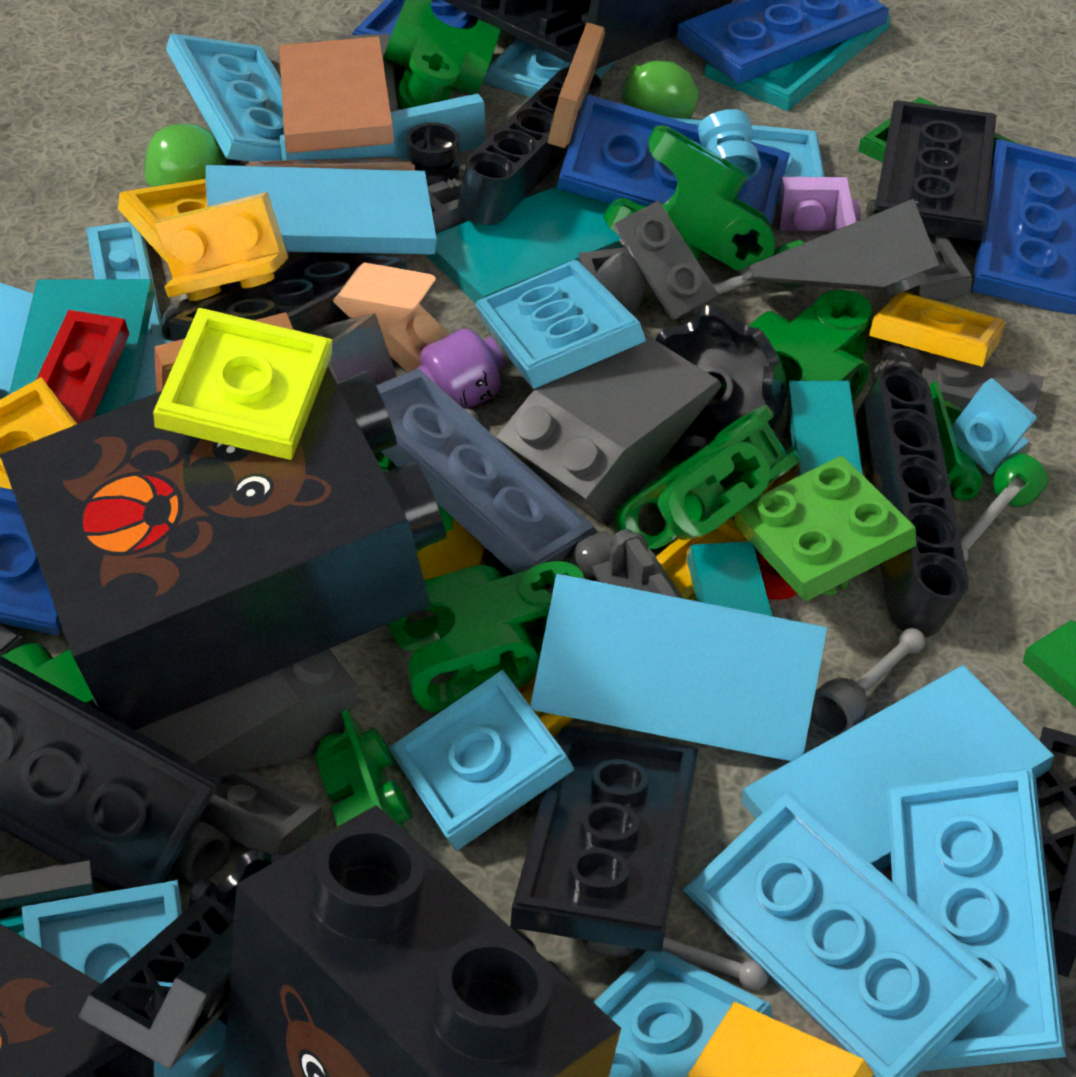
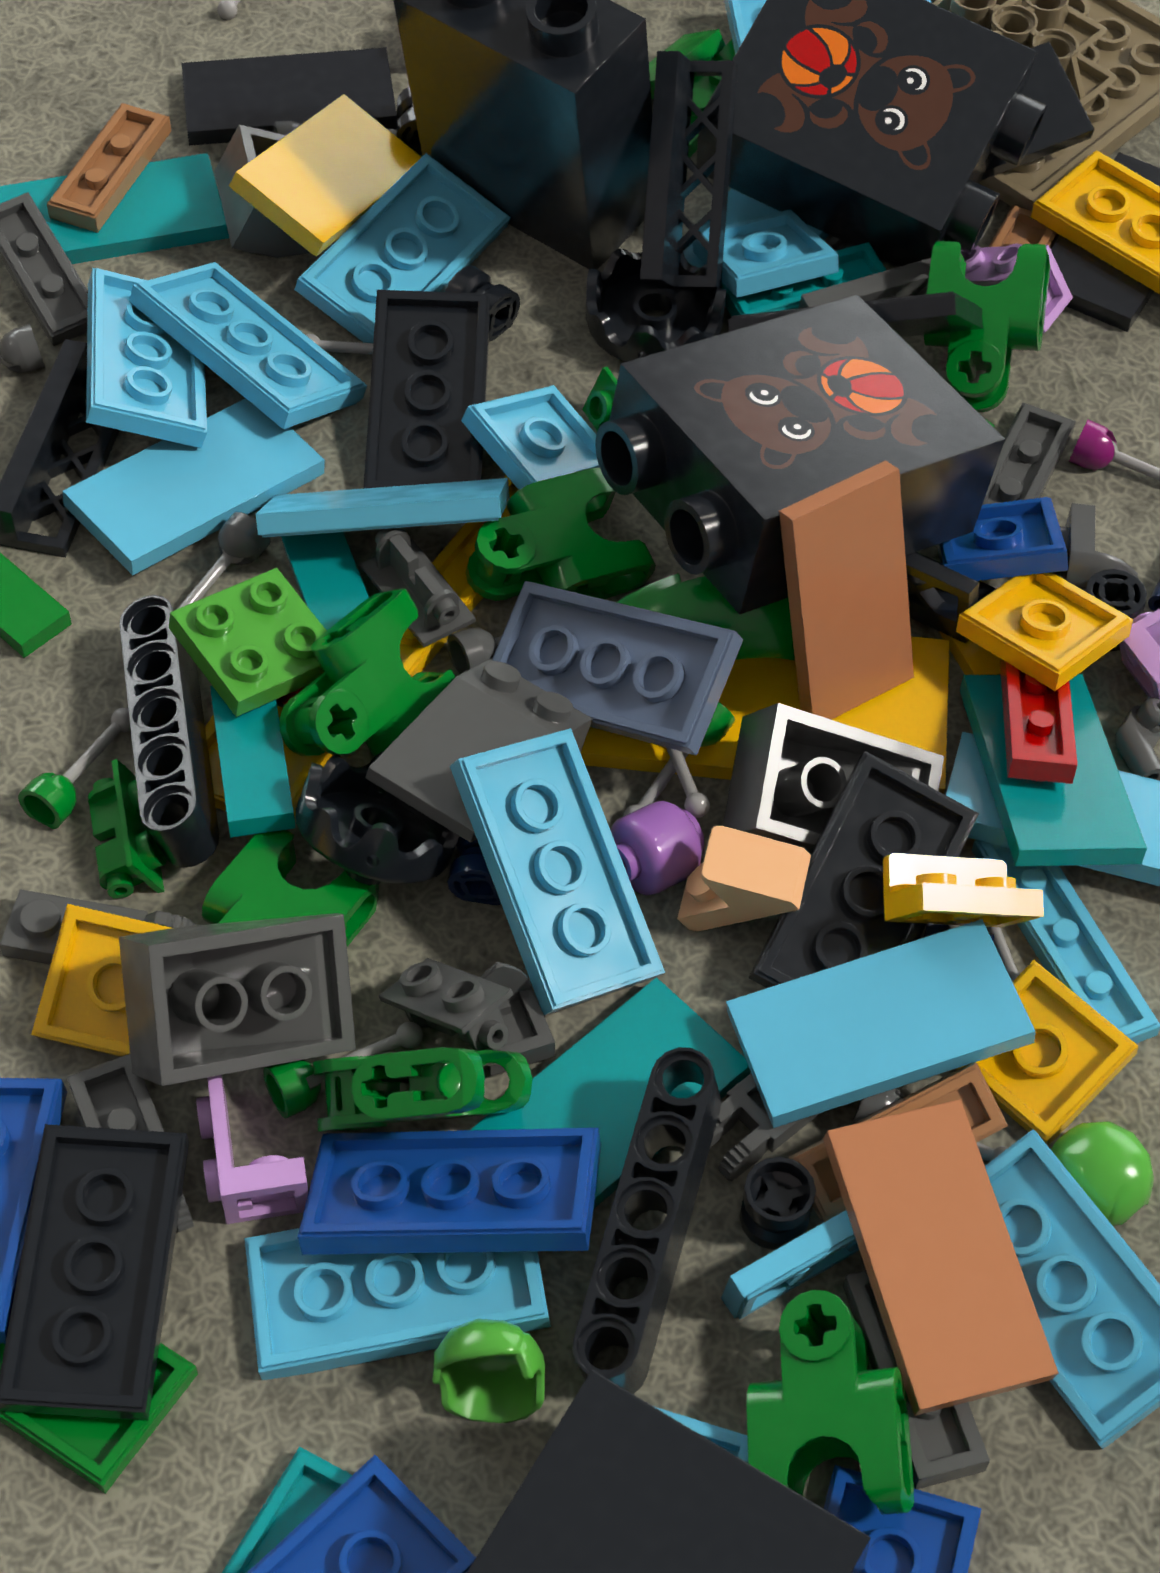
camera: 170 degrees right, 10 degrees up
(243, 383) = (801, 444): neon yellow tile -> none
(576, 85) = (600, 1253): medium nougat tile -> none
(729, 136) = (380, 1170): medium azure wheel -> none
(992, 426) = (83, 829): medium azure bracket -> none

